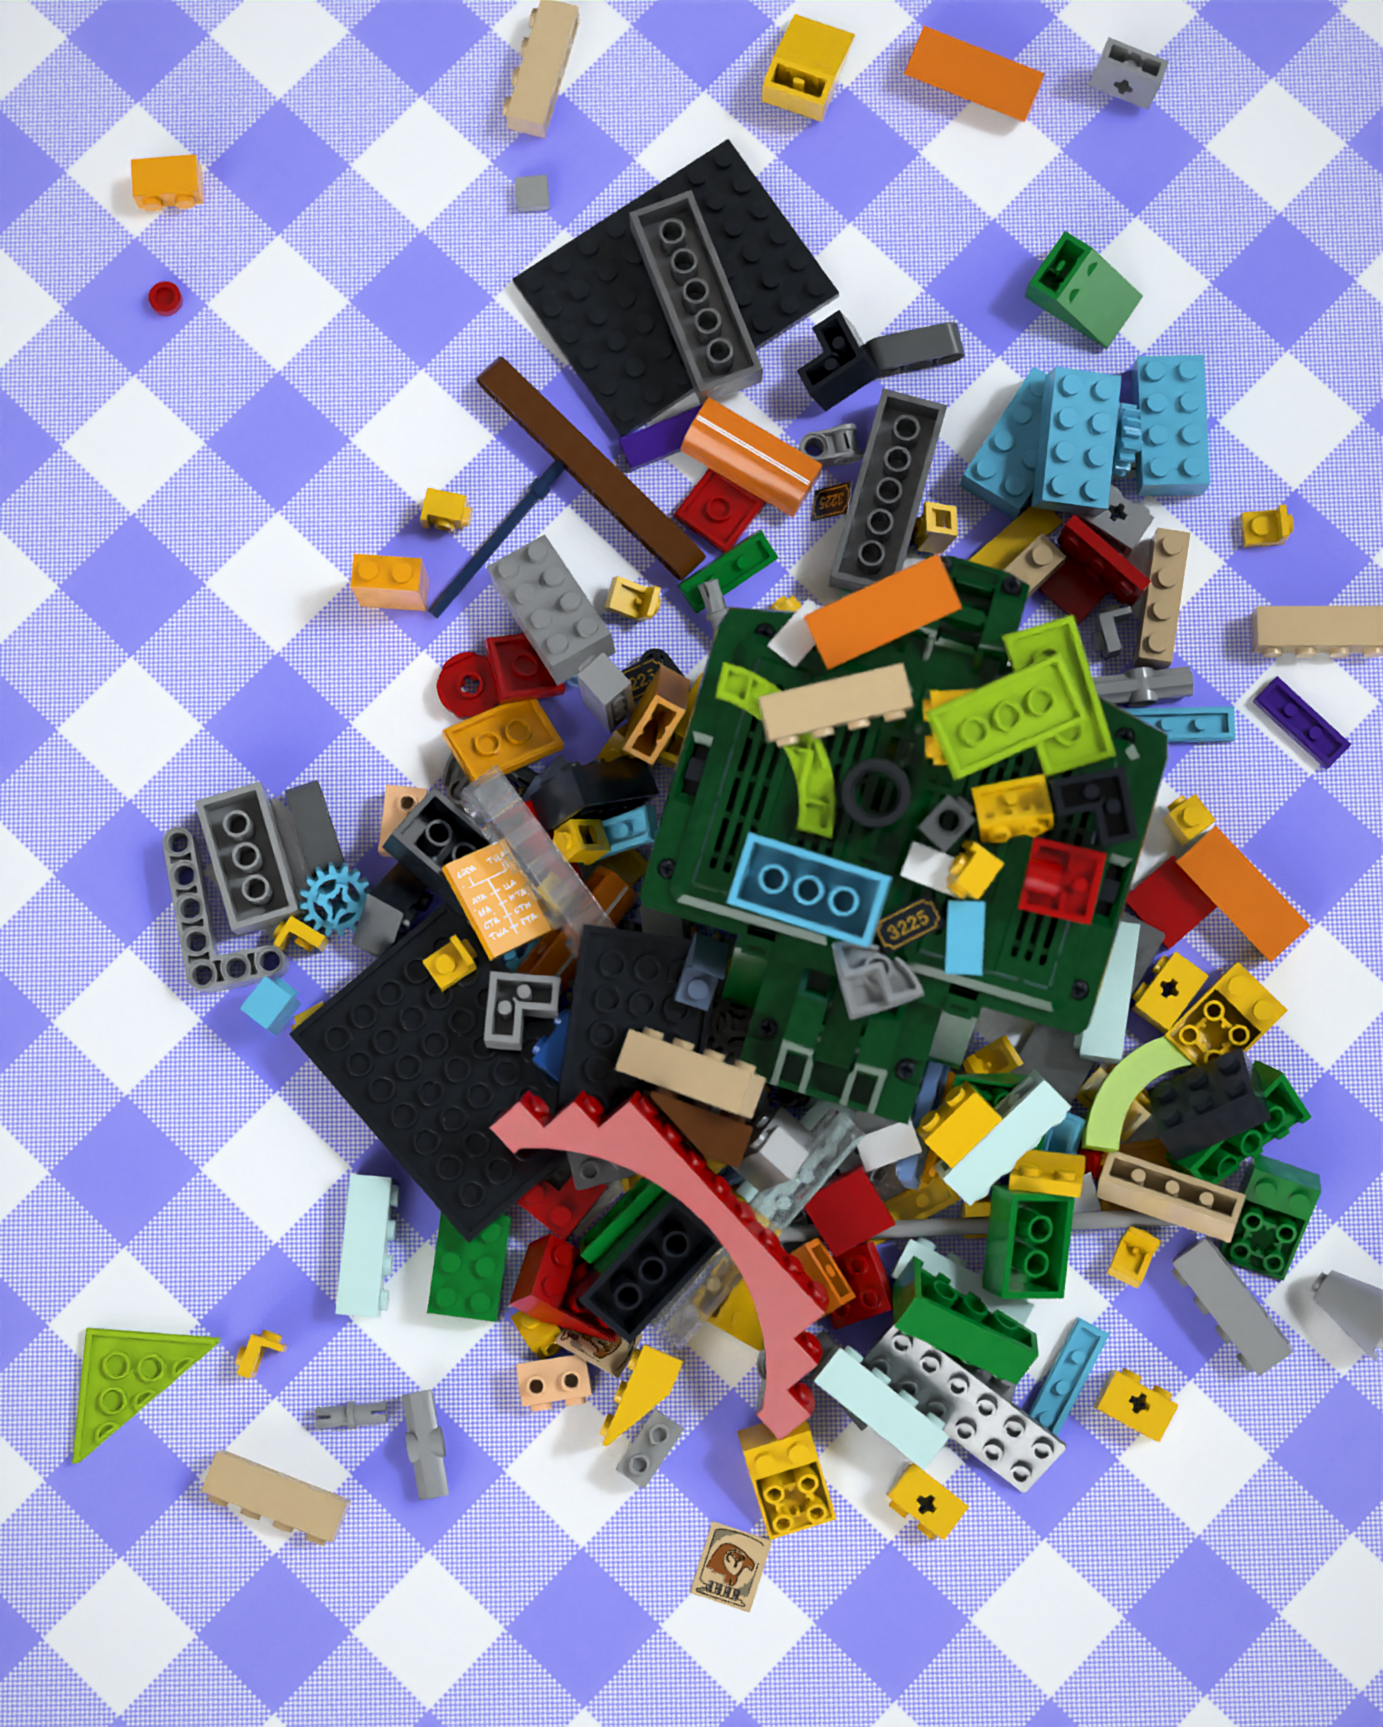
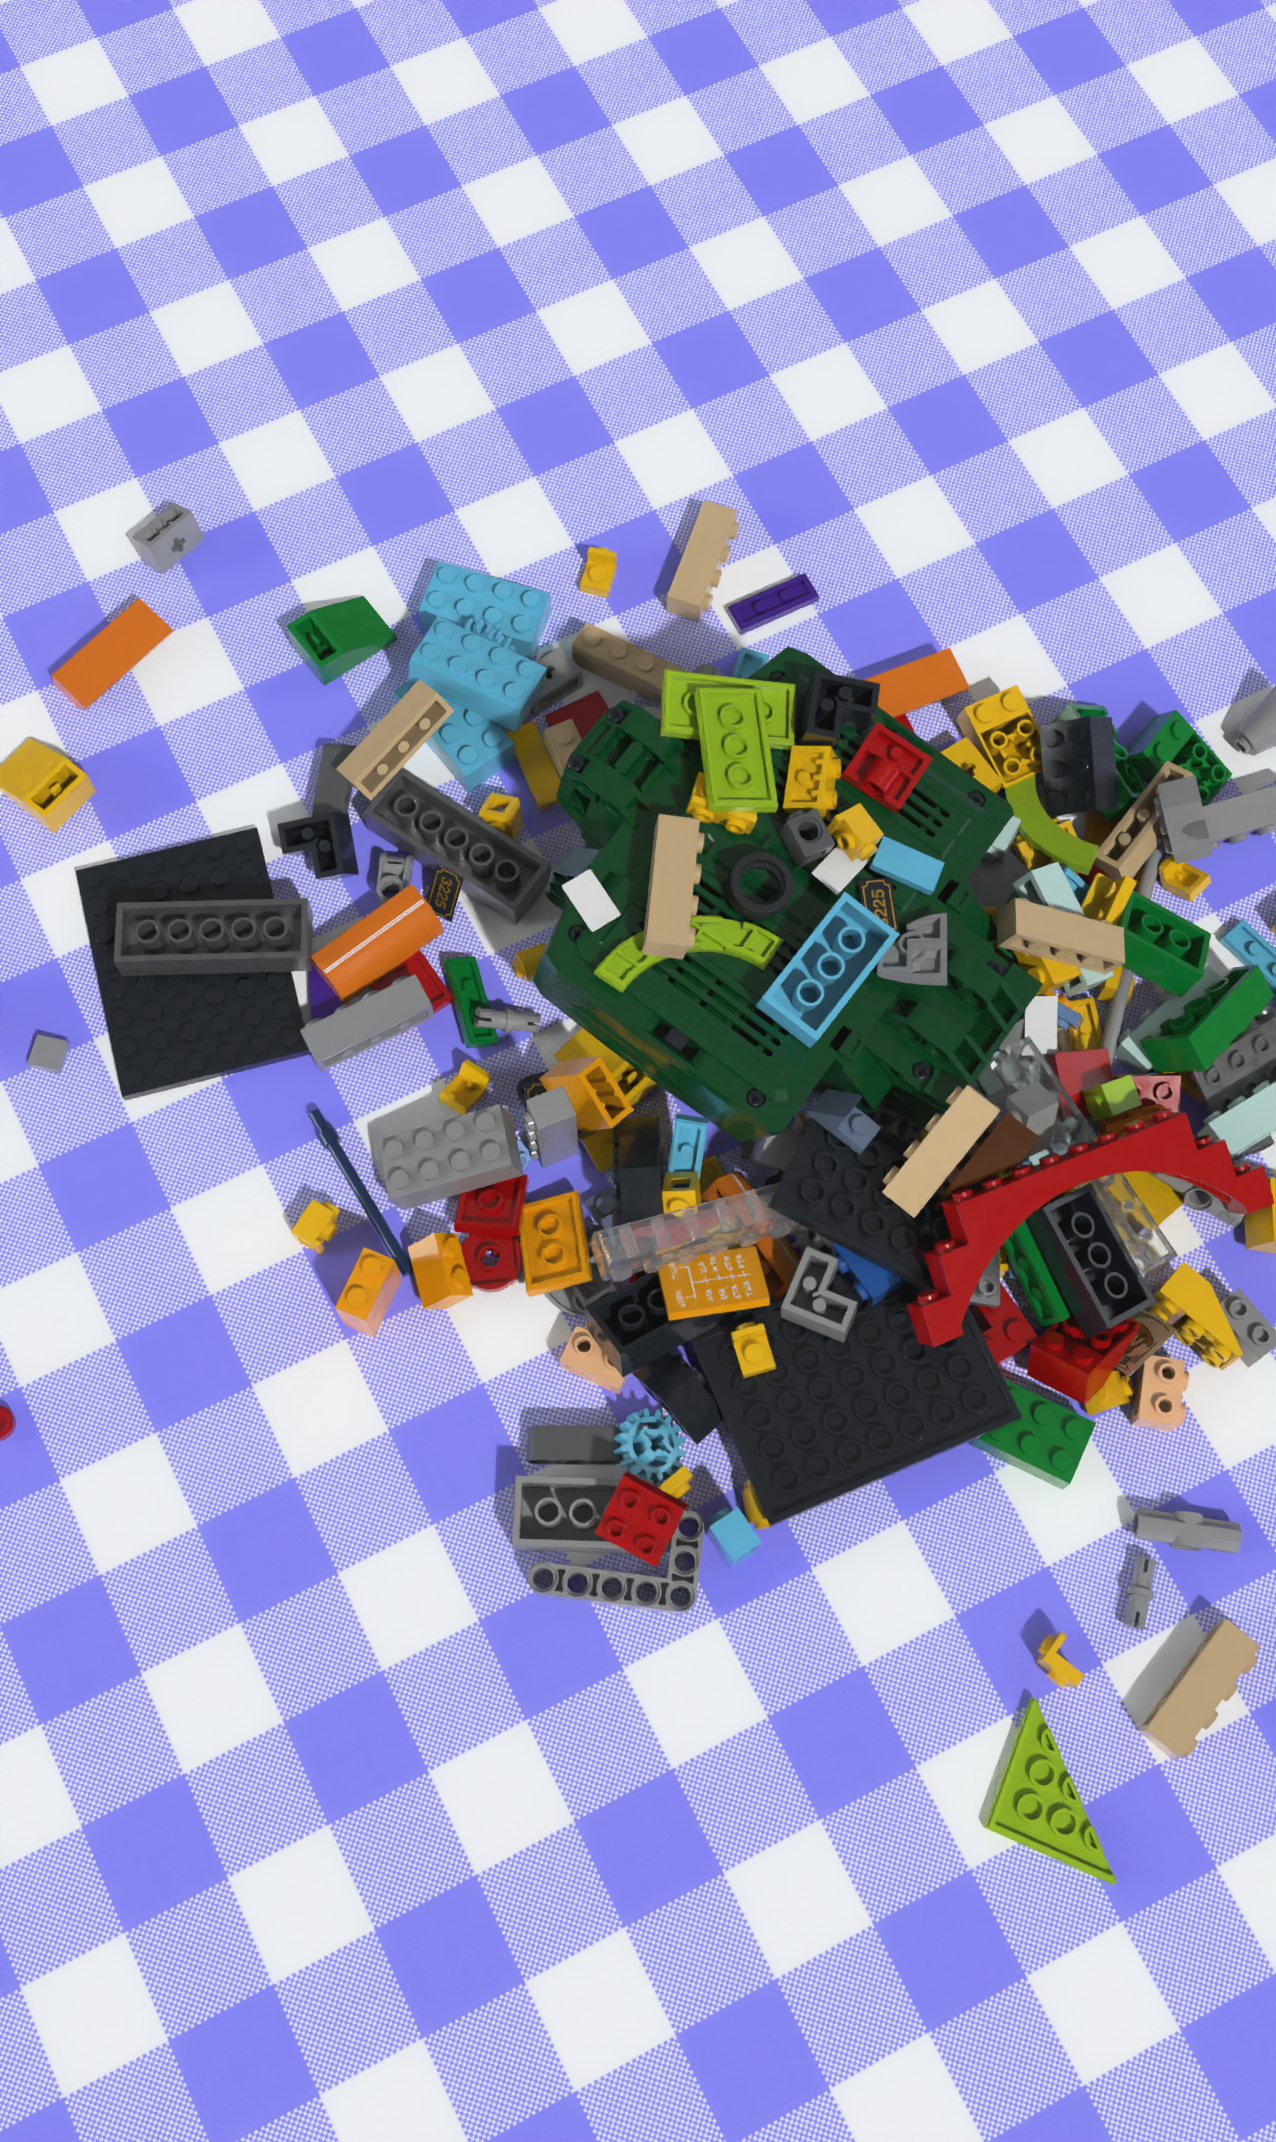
camera: 75 degrees left, 10 degrees down
(250, 909) = (641, 1518): none -> red plate
(366, 1246) = (986, 1525): light aqua brick -> none
(438, 642) = (440, 1271): none -> light orange brick
(590, 468) = (327, 1087): reddish brown beam -> none
(664, 478) = (367, 1022): none -> light grey brick
(836, 1241) = (1112, 1098): none -> lime brick
(883, 611) = (603, 818): orange brick -> none
(970, 388) = (395, 739): none -> tan brick
(976, 1130) = (1060, 936): none -> tan brick
(1102, 561) = (587, 692): red plate -> none
(1173, 1228) = (1183, 820): none -> light grey arch

